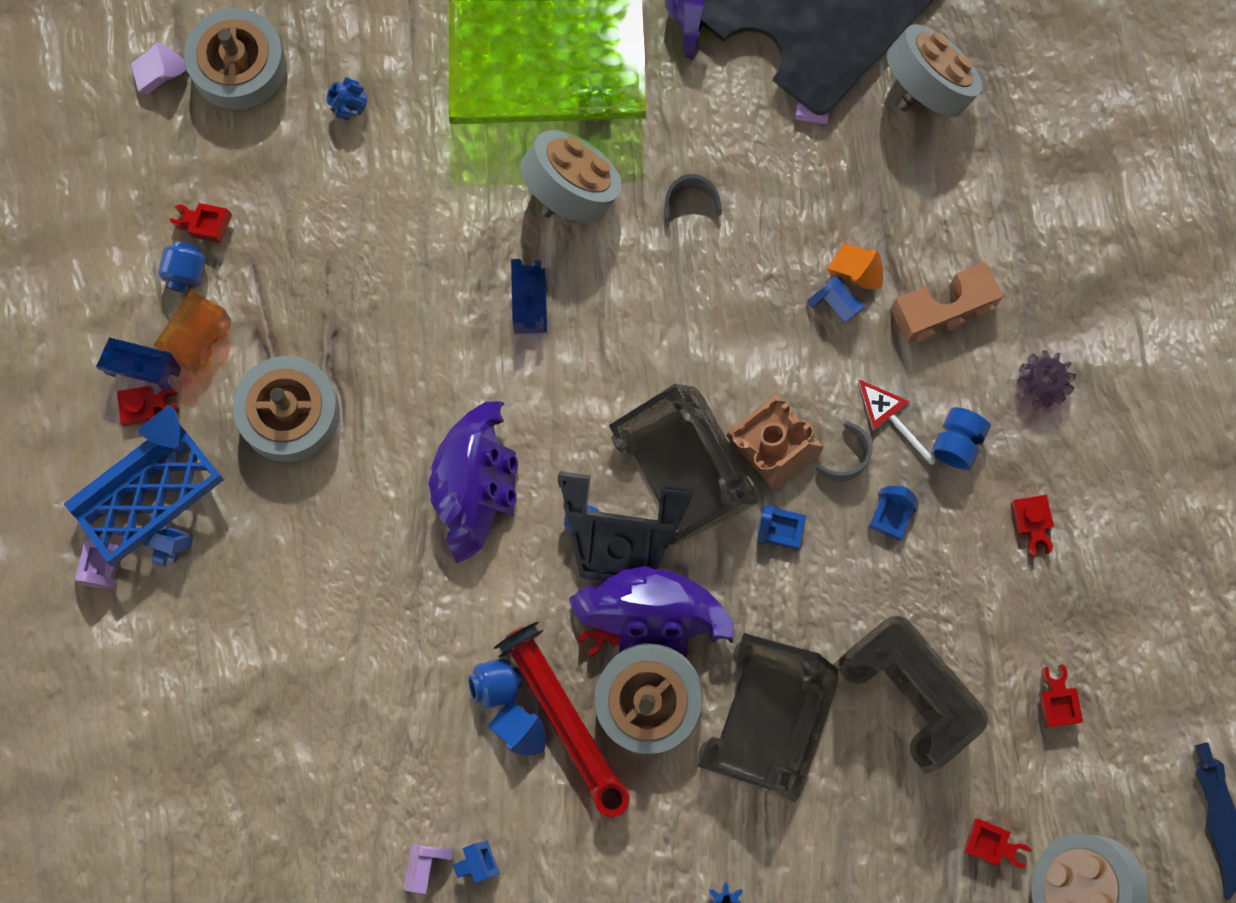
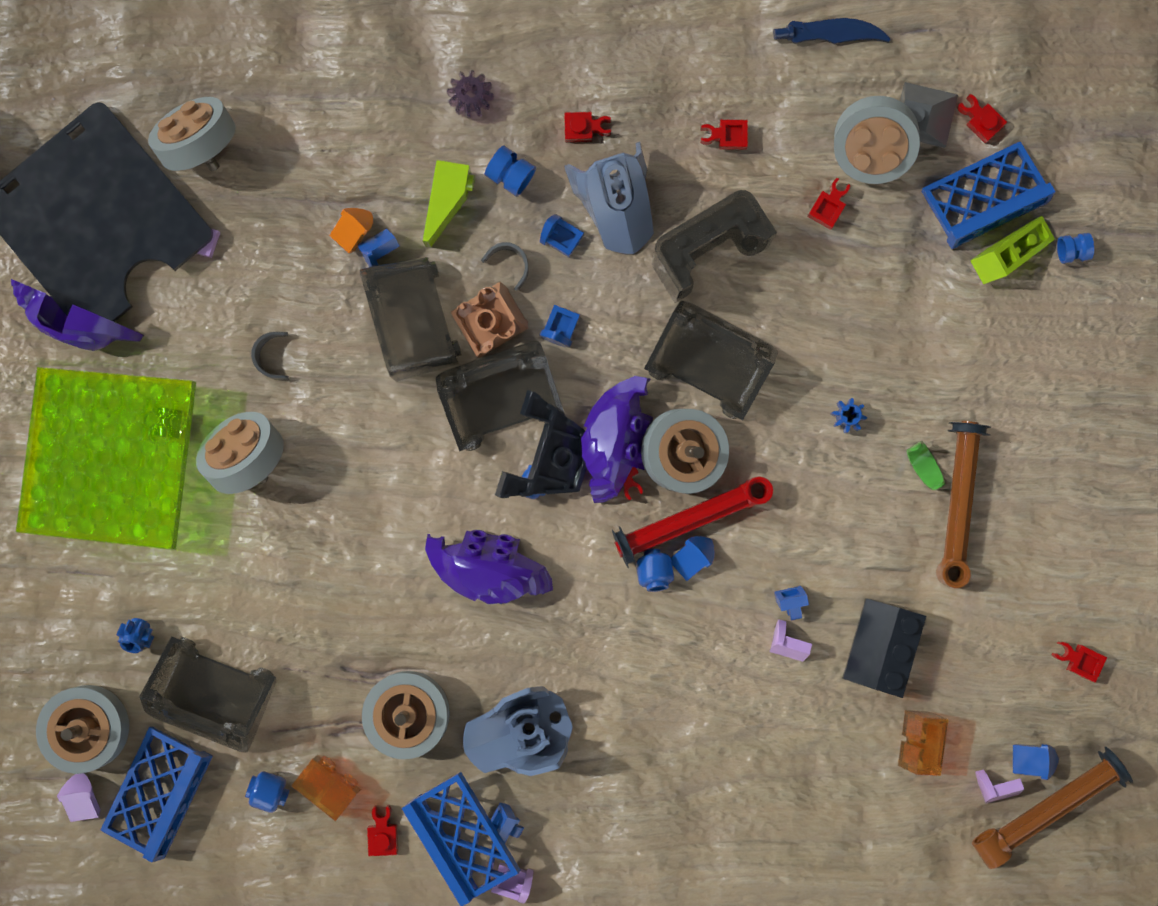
camera: 75 degrees left, 10 degrees up
(138, 362) = (349, 835): clear blue hinge -> none
(154, 169) = (177, 804): none -> blue fence
(162, 428) = (408, 819): blue tile -> none
(205, 222) = (229, 769): red plate -> none
(267, 527) = (501, 740): none -> sand blue piece
(287, 185) = (207, 695): none -> clear smoke windscreen
(528, 297) = (337, 502): clear blue hinge -> none
(759, 343) = (409, 318): none -> clear smoke windscreen
(882, 406) = (473, 229): piece -> none
(918, 370) = (447, 196): none -> lime slope
(922, 316) = (389, 137): nougat arch -> none
(930, 584) = (620, 217): none -> sand blue piece

